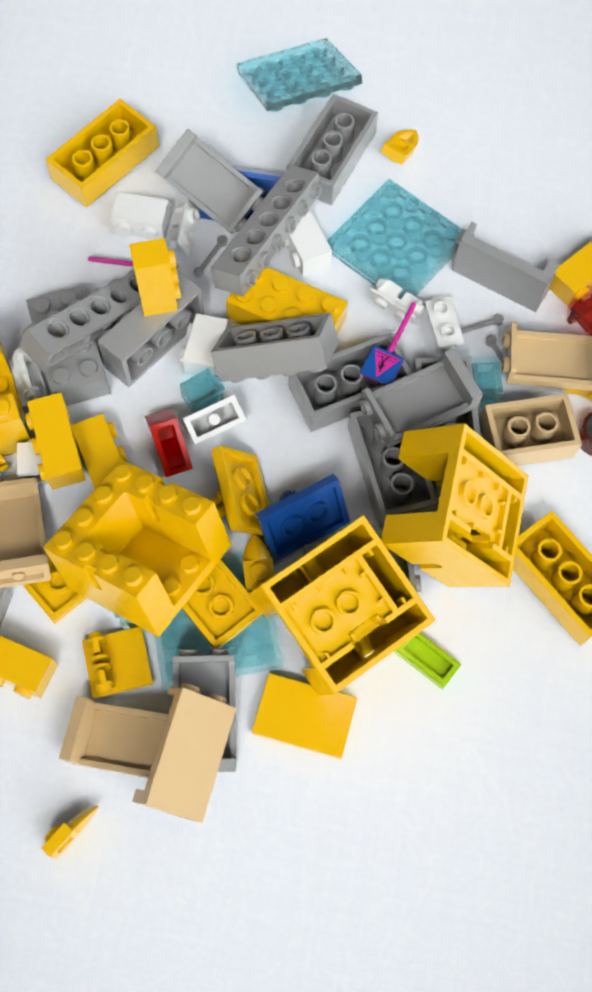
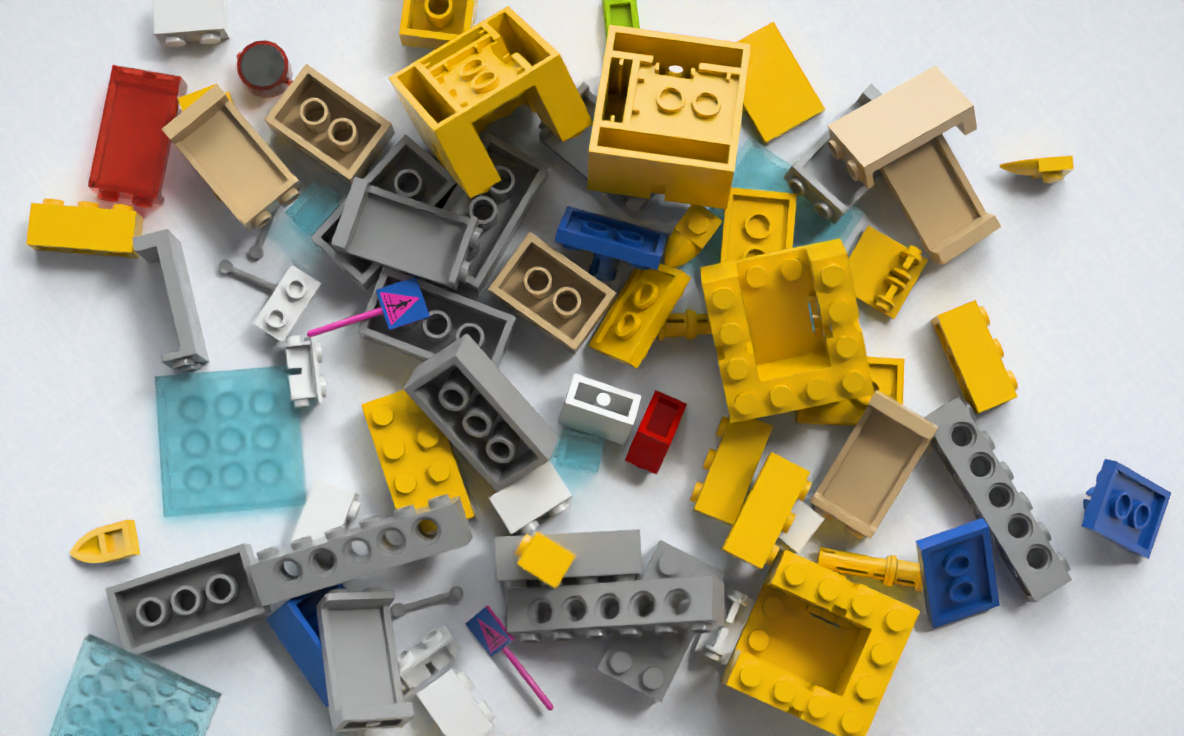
camera: 140 degrees left, 15 degrees up
(304, 455) = (552, 293): none -> tan brick

